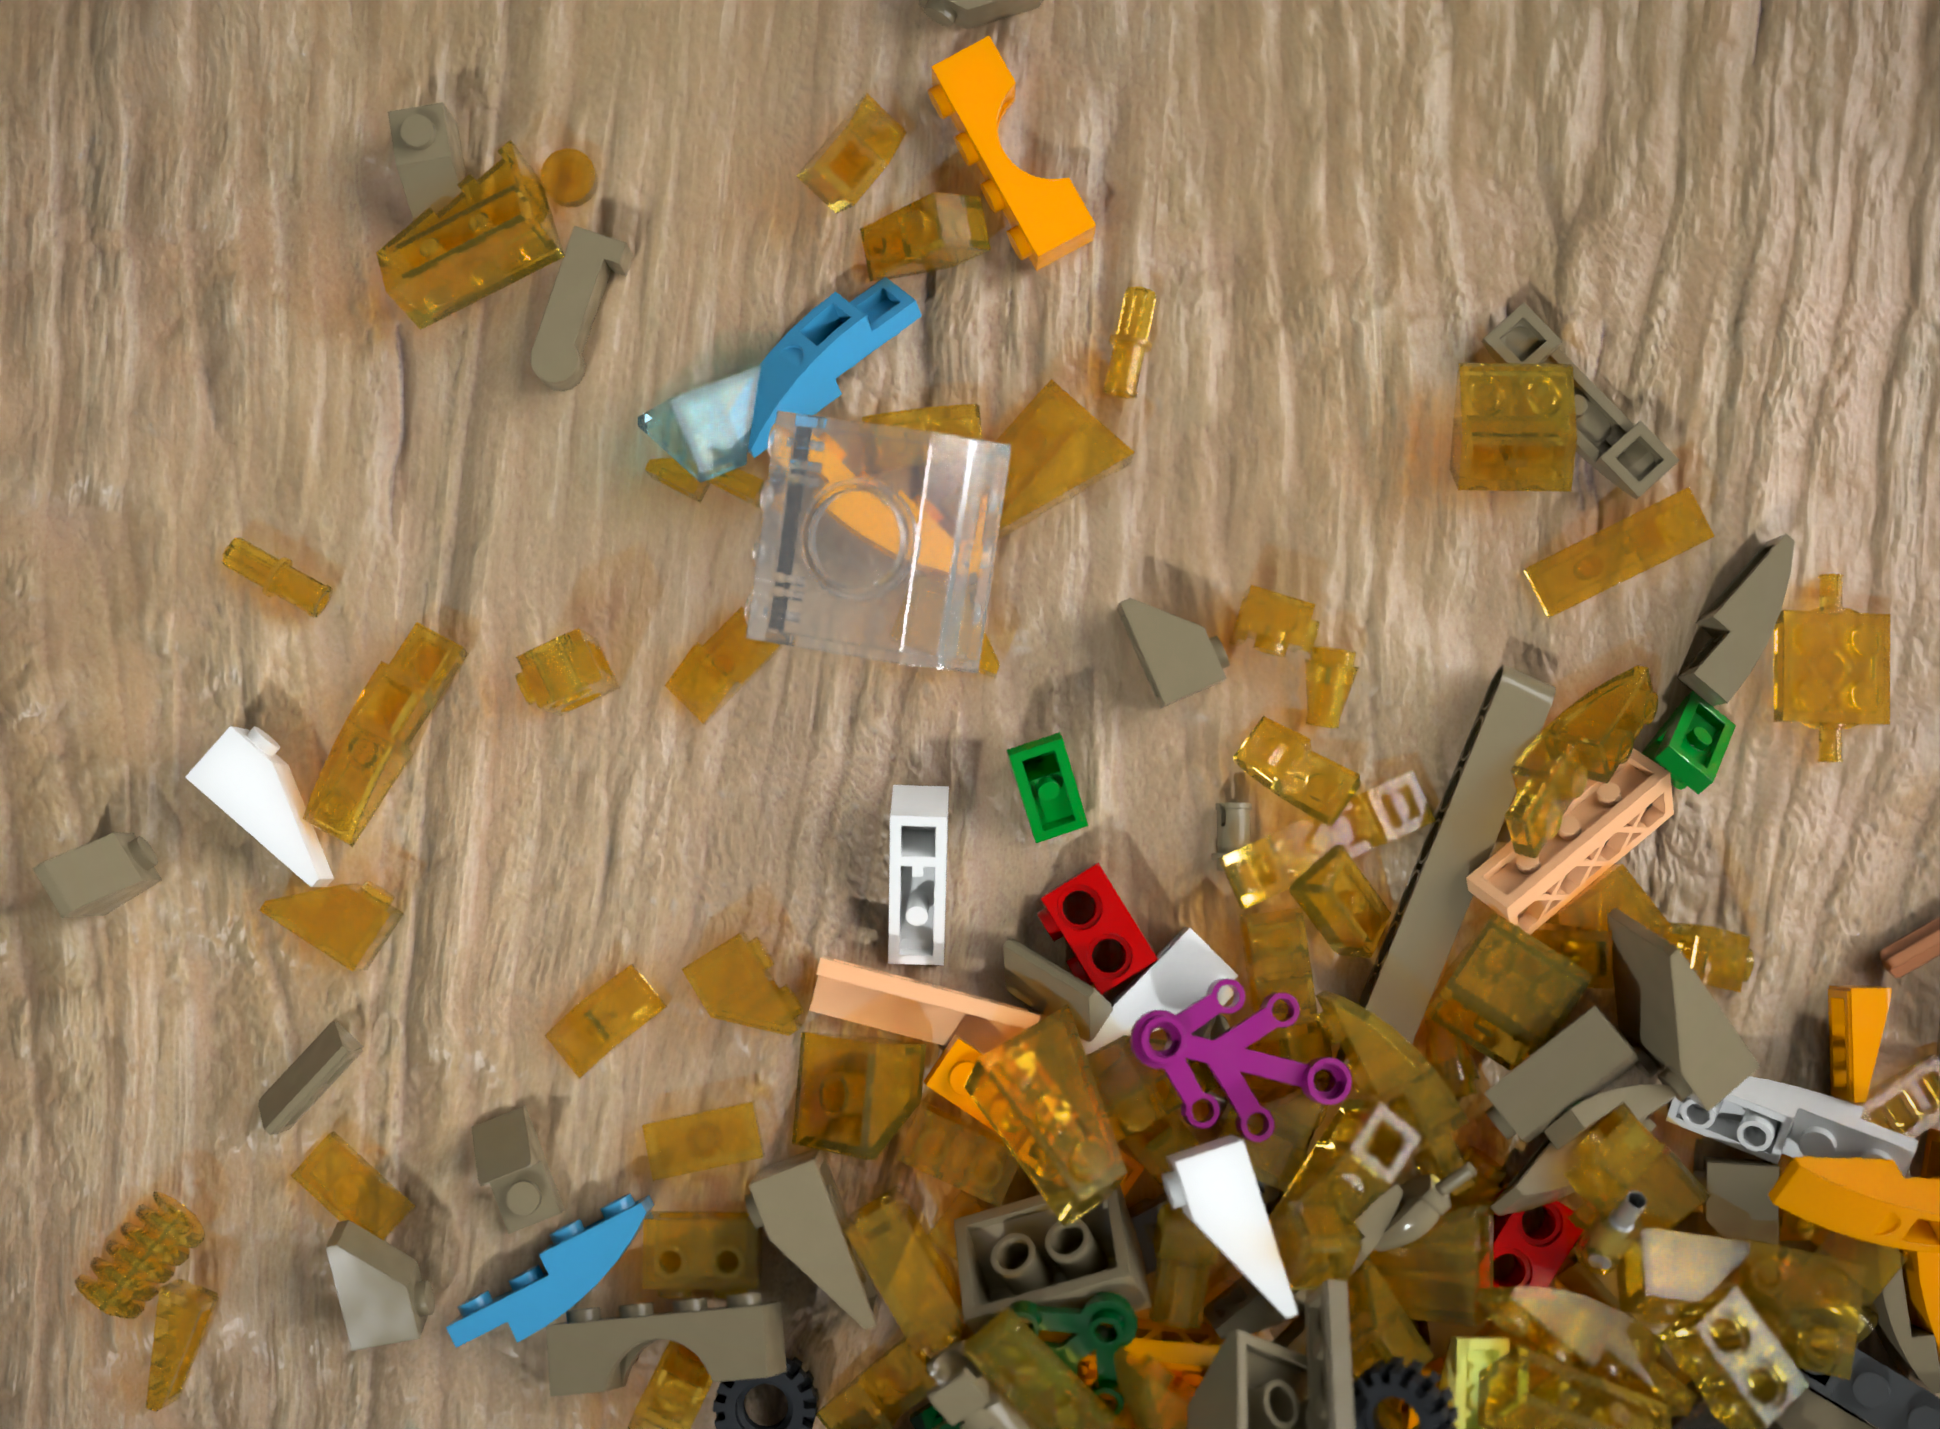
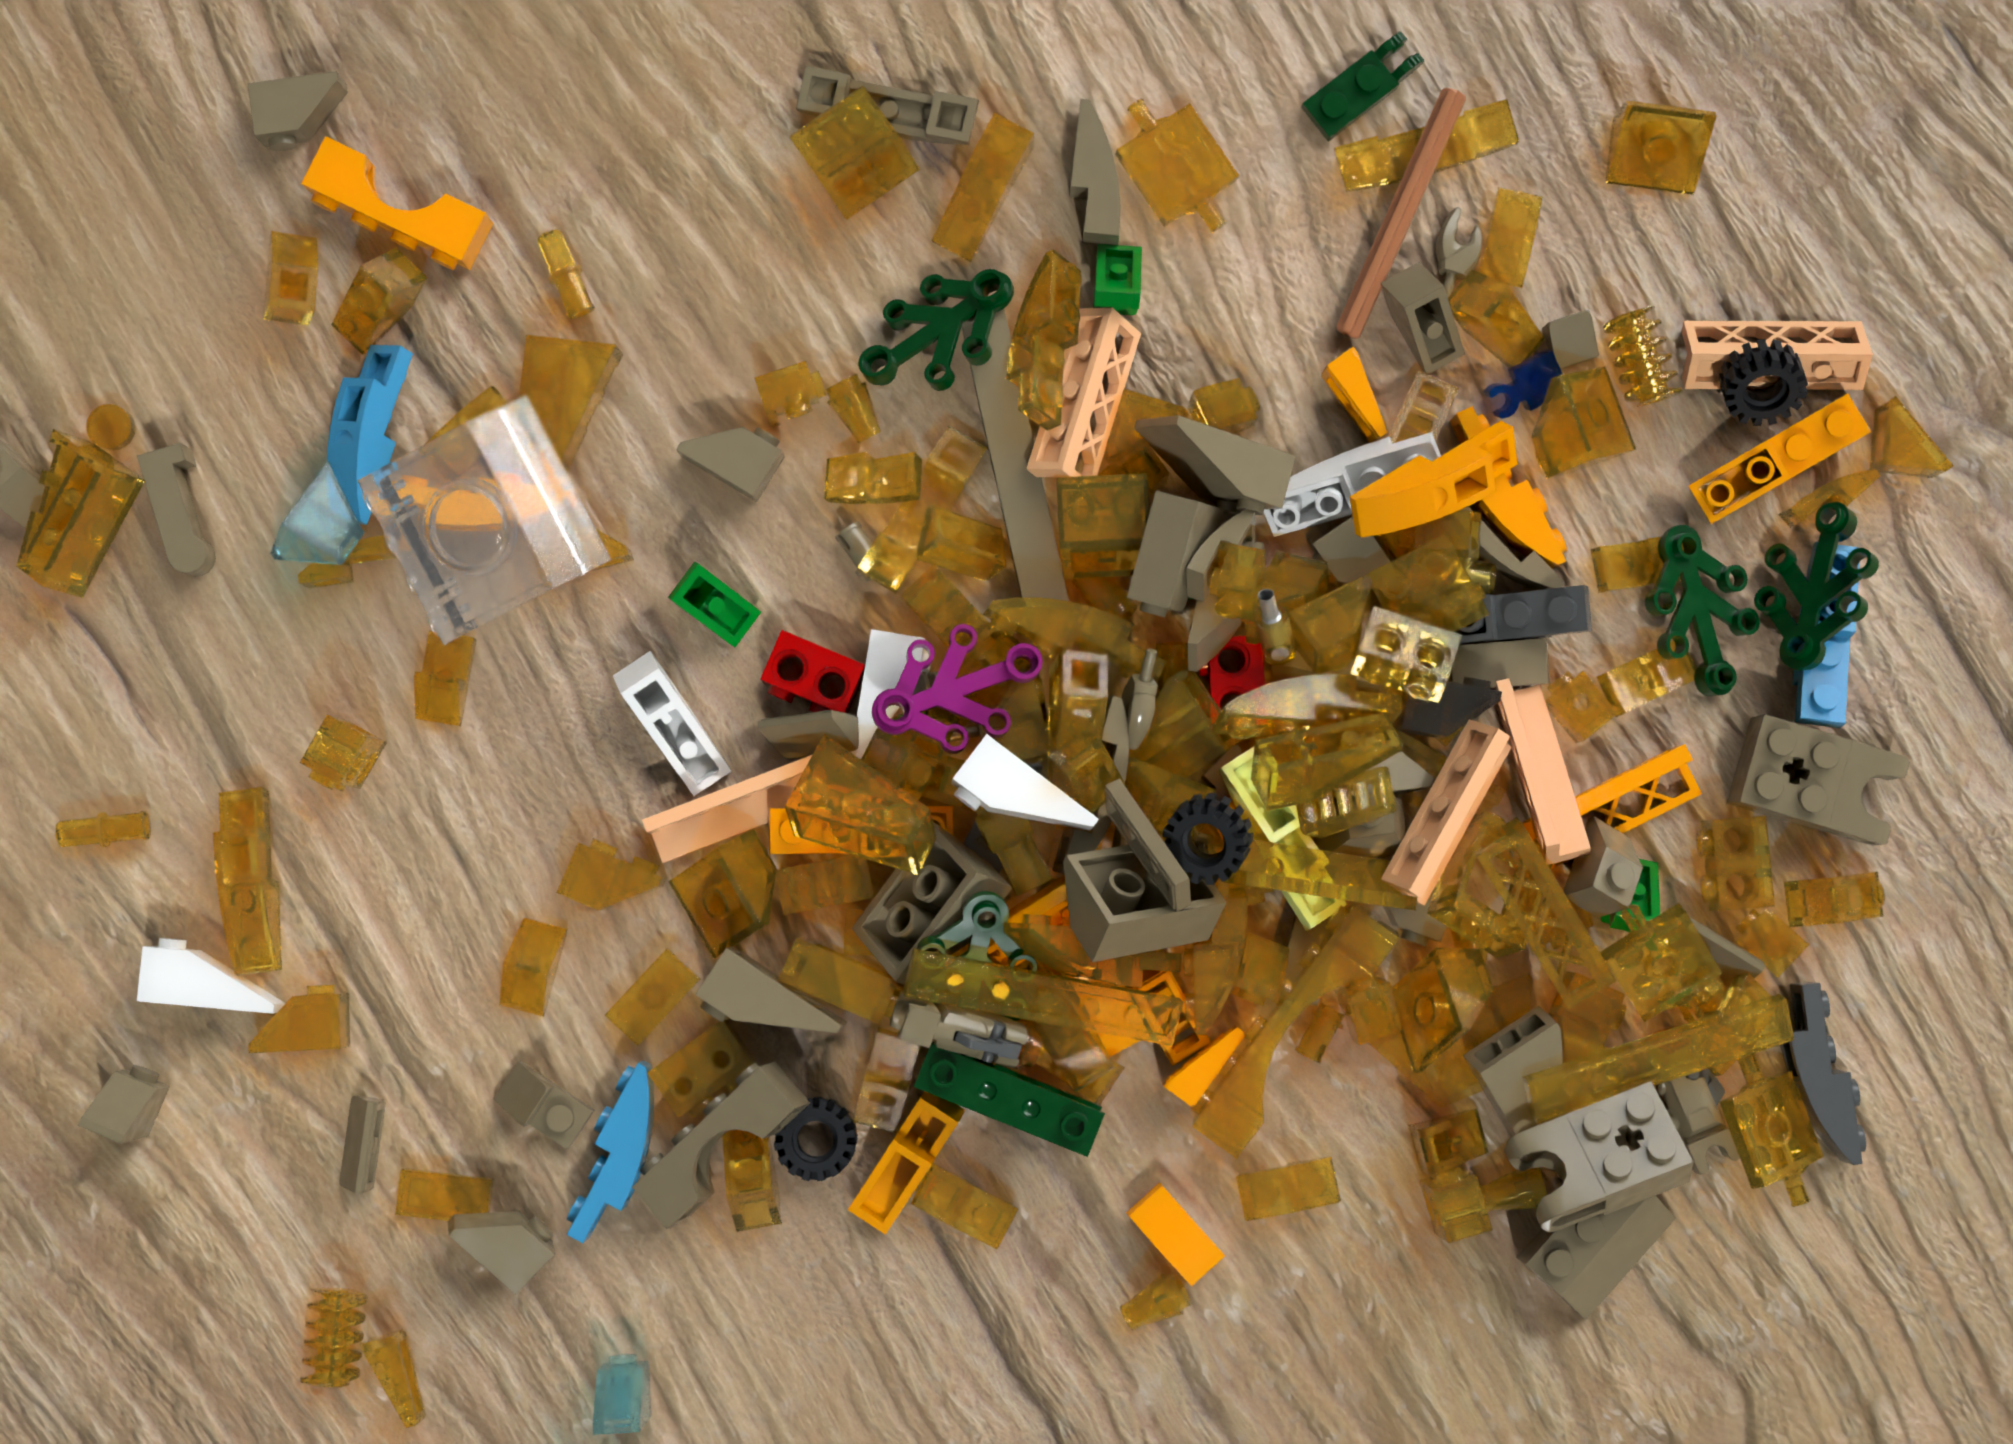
camera: 35 degrees left, 0 degrees up
(1480, 665) = (941, 325): none -> dark green plant

